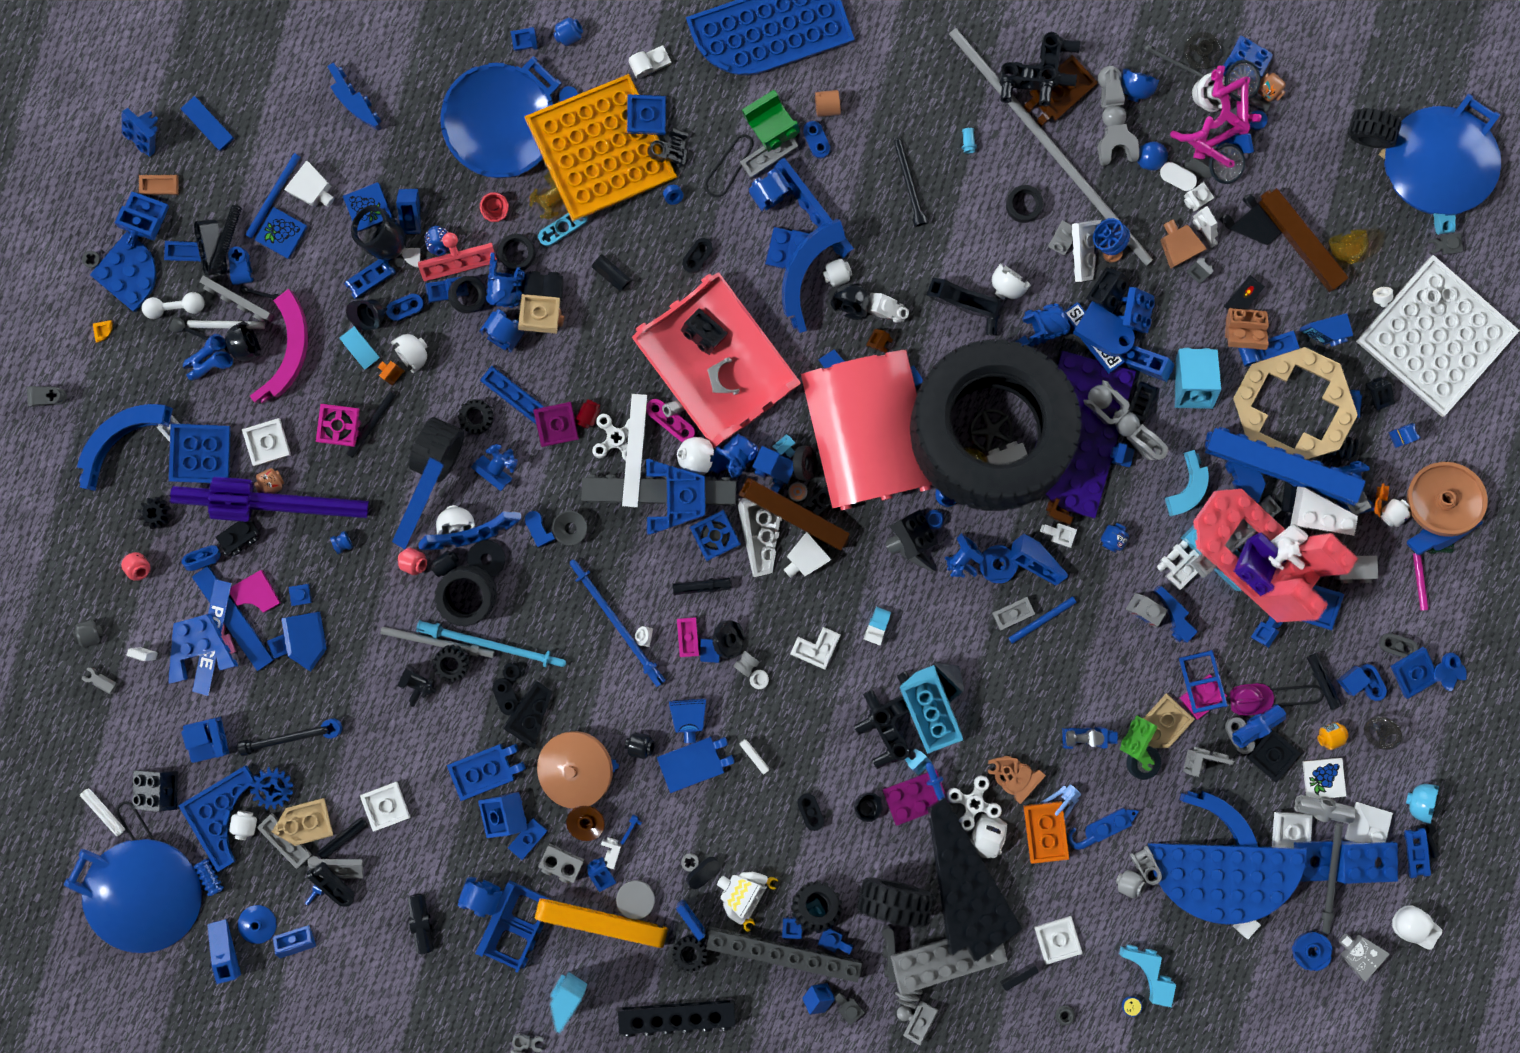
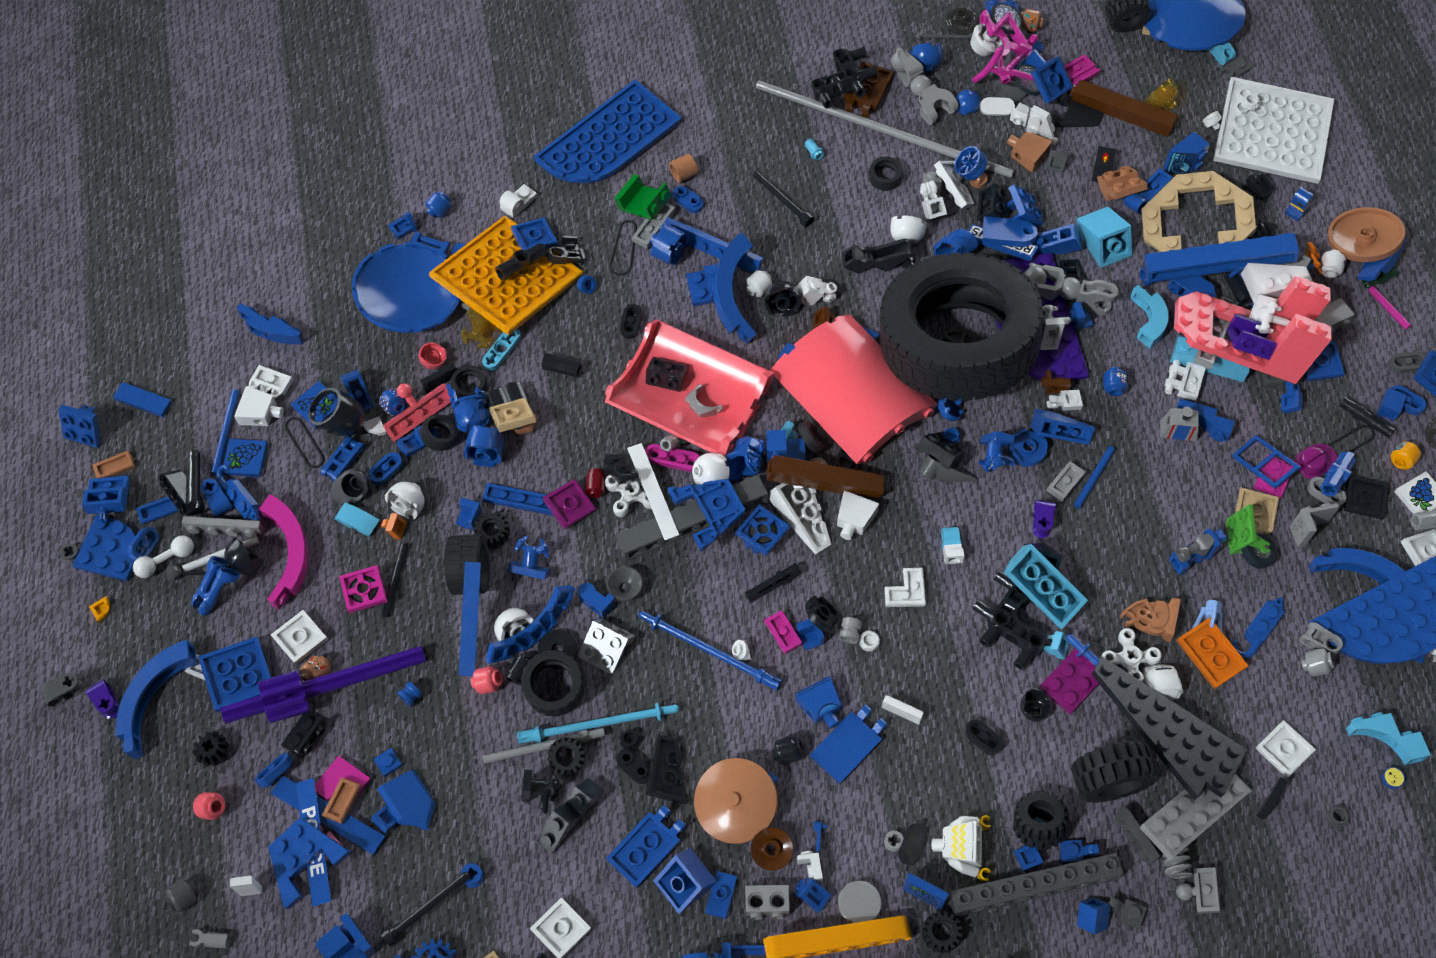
camera: 15 degrees left, 25 degrees down
(78, 419) = (102, 697): none -> dark purple piece
(158, 284) = (143, 545): none -> blue plate
(248, 613) = (341, 800): none -> nougat tile
(260, 274) = (238, 495): none -> blue plate
(332, 161) = (270, 380): none -> white plate
(349, 238) = (298, 448): none -> black piece
(433, 715) = (566, 816): none -> black arch
(461, 391) = (469, 513): none -> blue panel
(489, 234) = (437, 378): none -> black tile
(529, 575) = (605, 645): none -> bracket
(606, 148) = (521, 262): none -> black piece
(614, 414) = (619, 469): none -> black plate
(975, 637) = (1044, 517): none -> dark purple piece
(1049, 263) = (932, 205): none -> white brick
(1080, 465) = (1052, 328): none -> white piece
(1248, 175) = (1052, 79): none -> blue plate
(1284, 173) = (1082, 69): none -> dark pink plate

